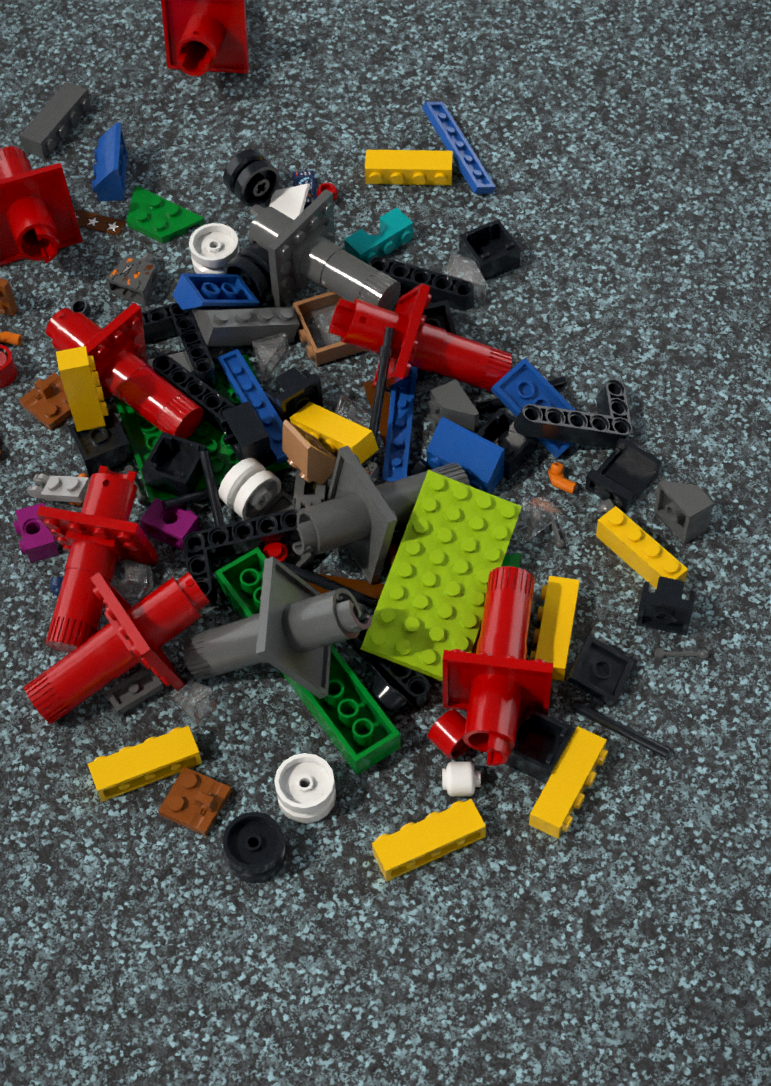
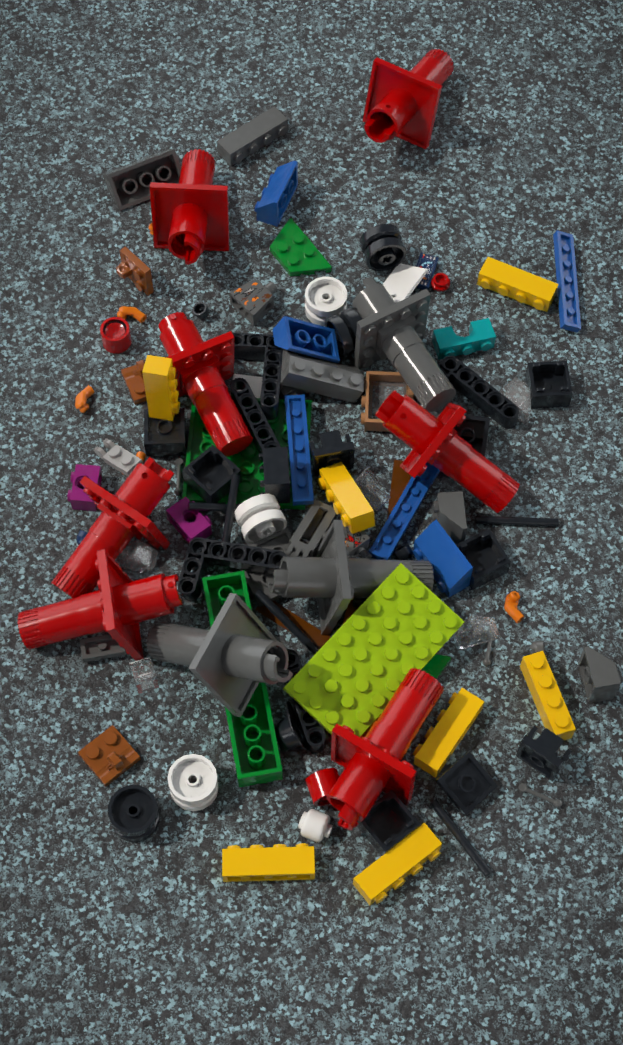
camera: 20 degrees right, 5 degrees up
(99, 222) = (246, 237): reddish brown sticker -> none
(144, 763) = (84, 709): yellow brick -> none
(269, 352) = (330, 405): clear slope -> none
(276, 550) = (256, 580): red plate -> none
(307, 454) = (316, 508): medium nougat slope -> none
(385, 351) = (411, 450): black bar -> none
(527, 386) = (523, 540): blue plate -> none
(577, 426) = (550, 568): black beam -> none
(623, 475) = (565, 625): black panel -> none

